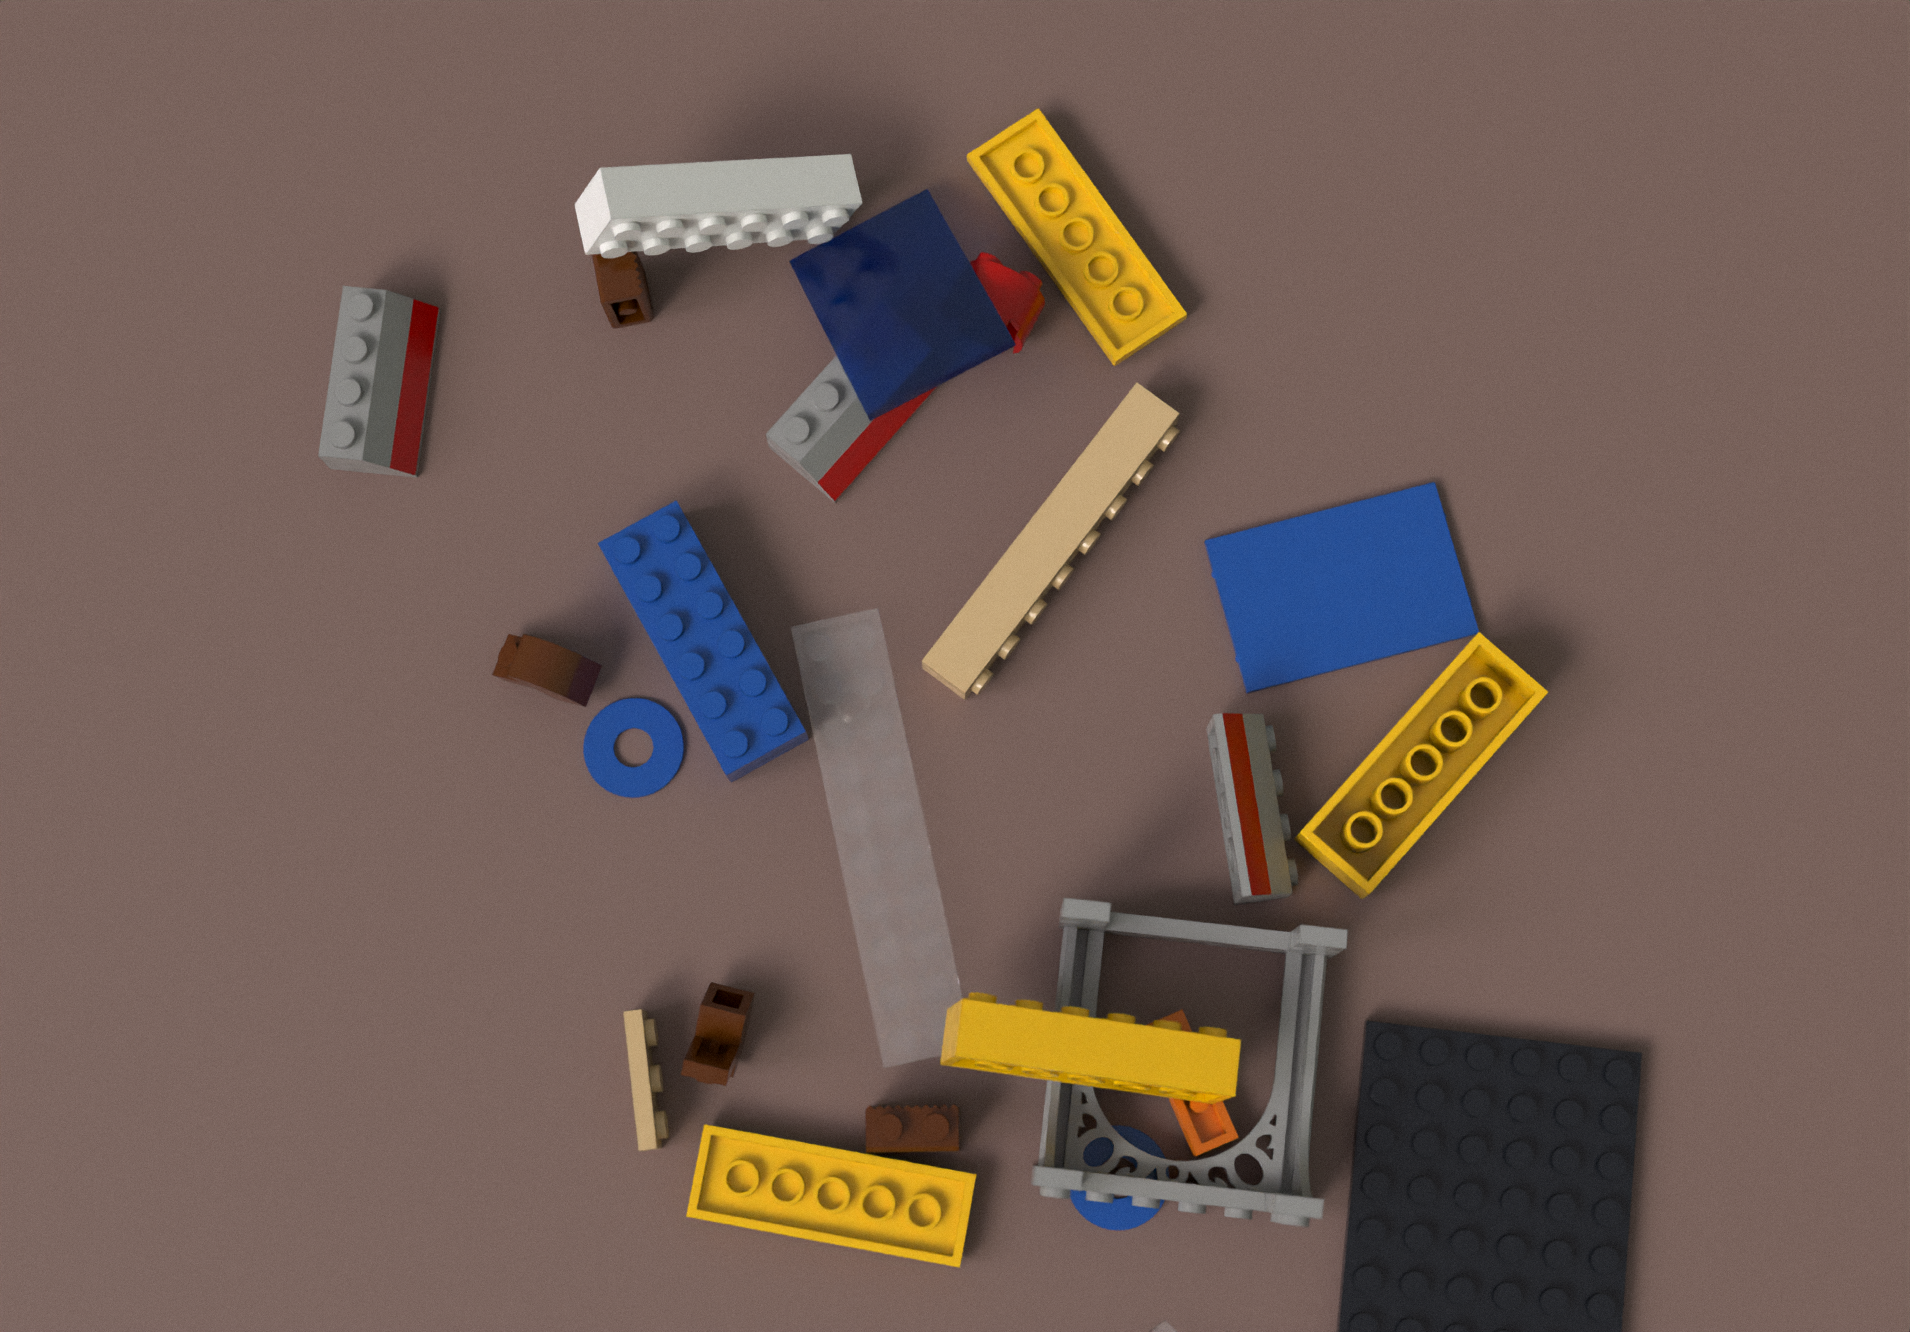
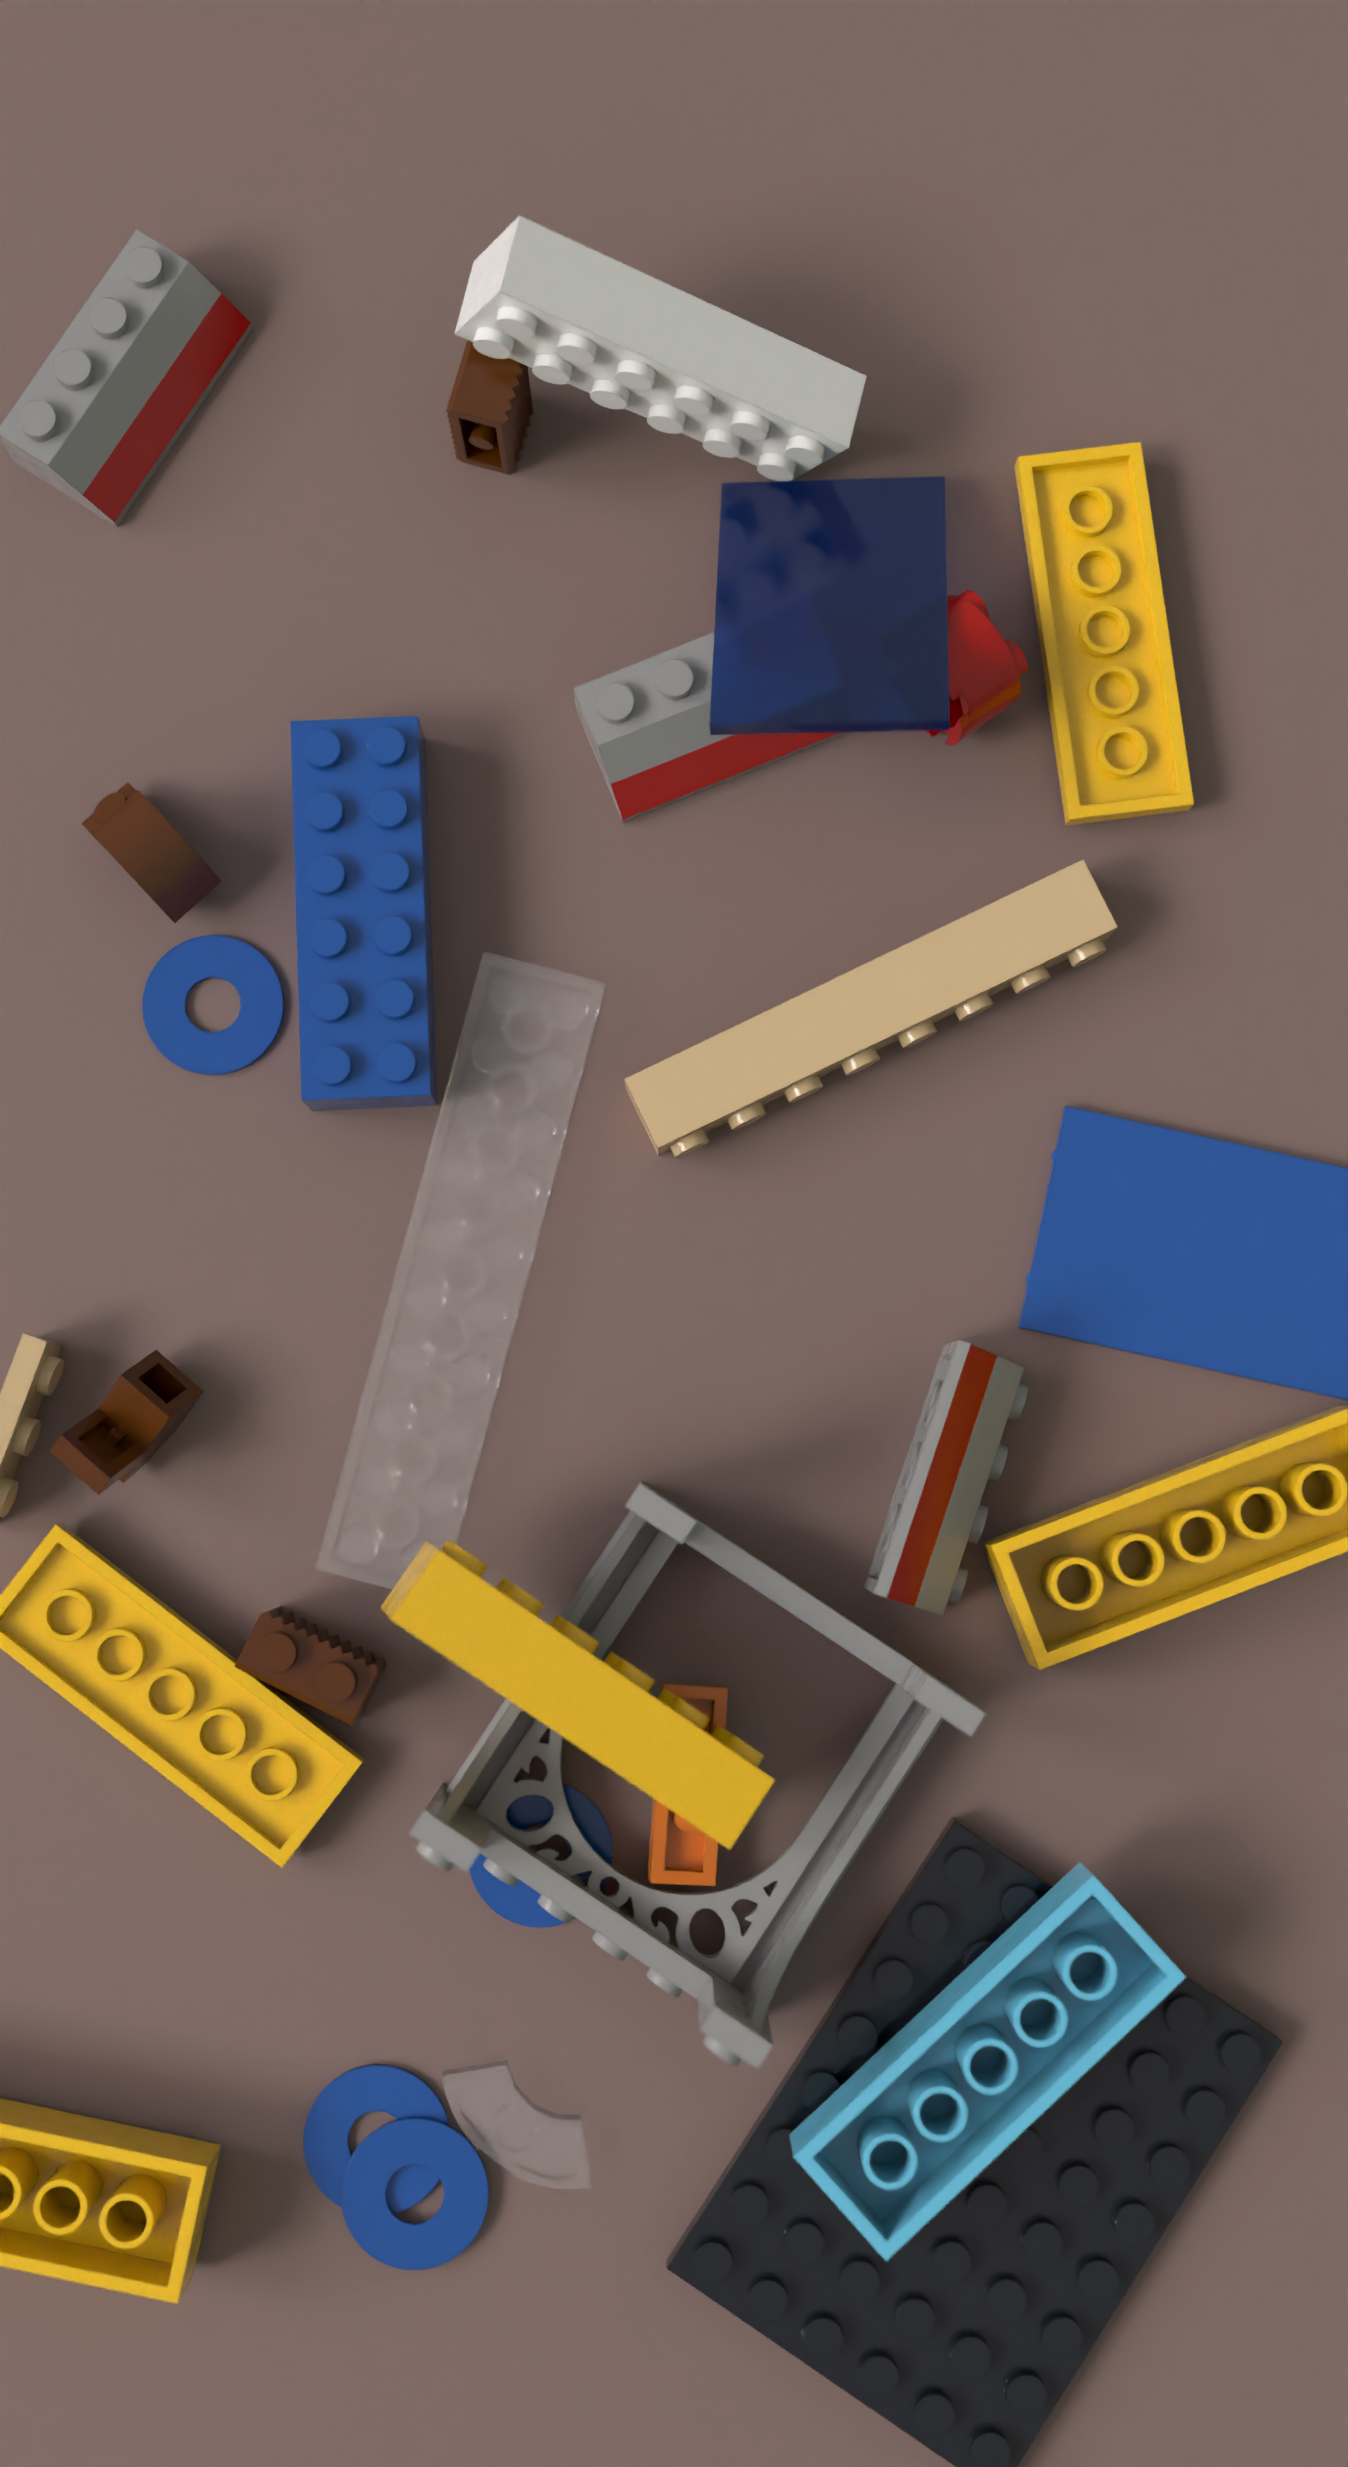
camera: 20 degrees right, 5 degrees up
(1460, 1151) = (983, 2060): none -> medium azure brick

